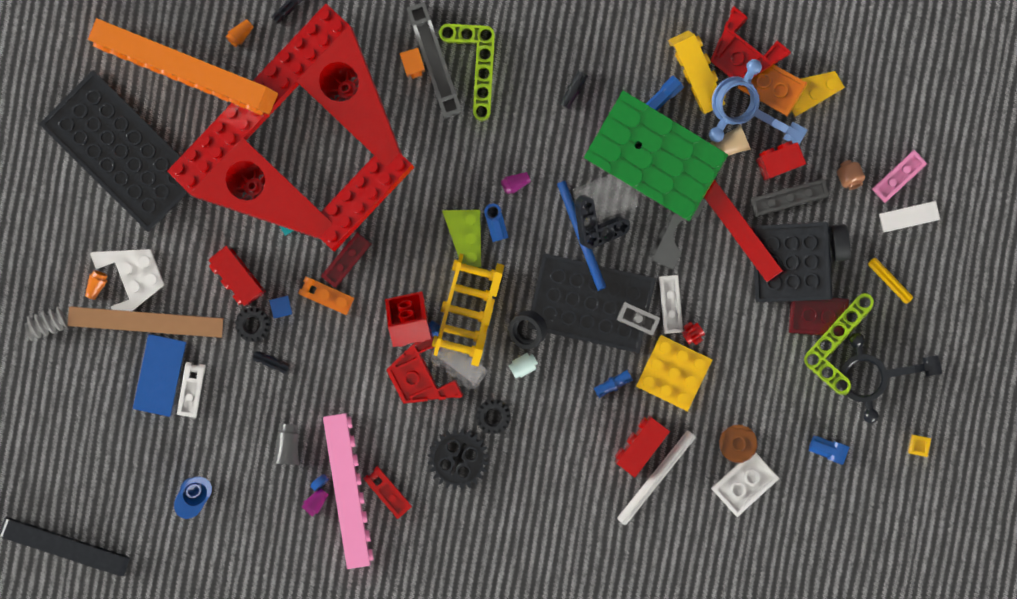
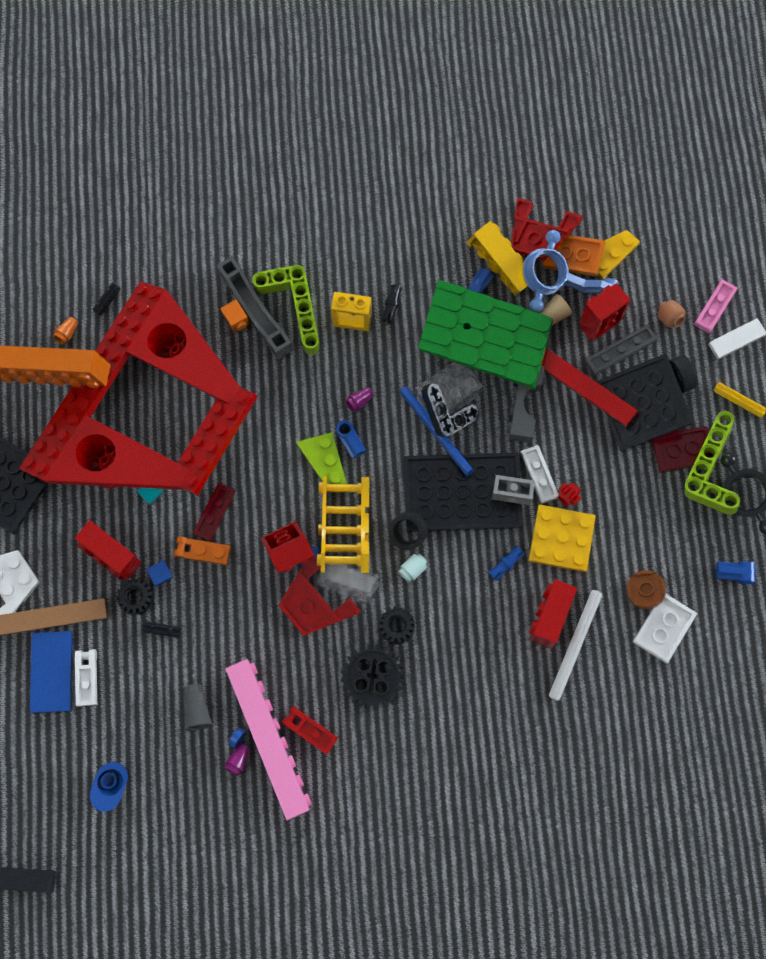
camera: 15 degrees left, 15 degrees down
(535, 97) = (343, 308): none -> yellow window

